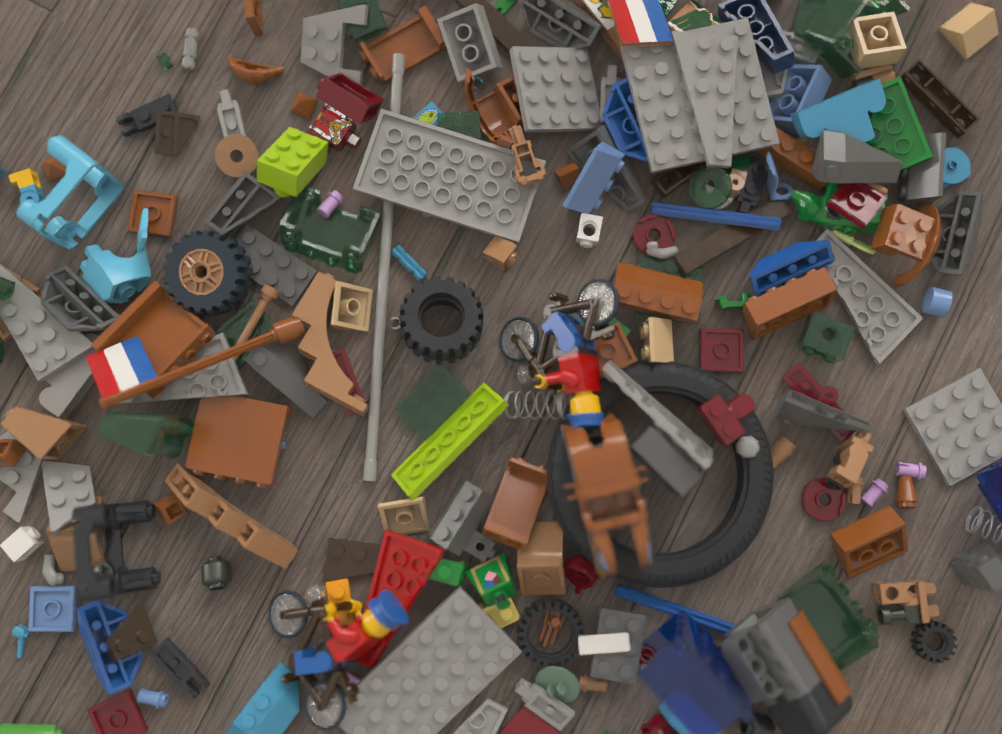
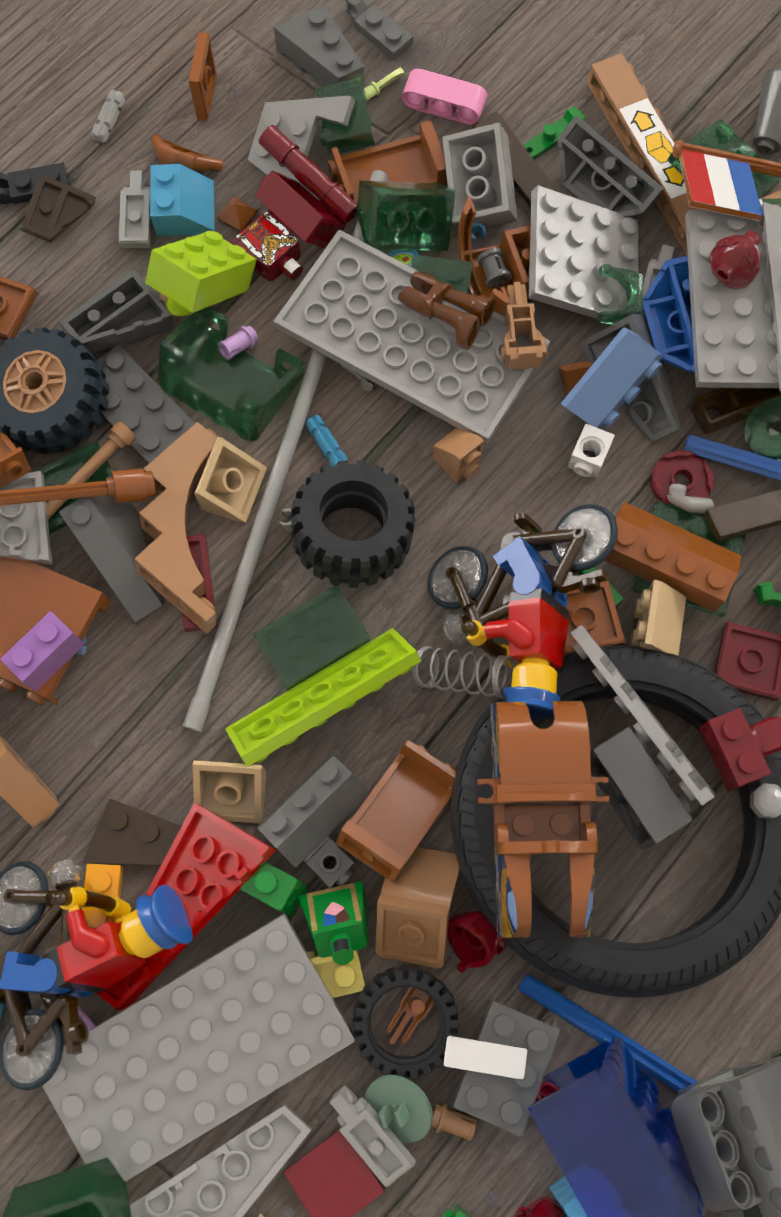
camera: 15 degrees right, 10 degrees down
(165, 61) = (70, 125): clear green piece -> none
(241, 143) = (117, 240): medium nougat tile -> none
(260, 457) = (42, 651): none -> medium lavender brick
(262, 106) = (181, 201): none -> dark azure slope
(348, 68) = (308, 174): none -> dark red piece
(424, 84) = (405, 215): none -> clear green slope
(485, 165) = (428, 296): none -> reddish brown piece
(495, 110) = (494, 268): none -> dark grey bush
(594, 104) = (632, 284): none -> clear green helmet
(661, 79) = (738, 258): none -> dark red helmet

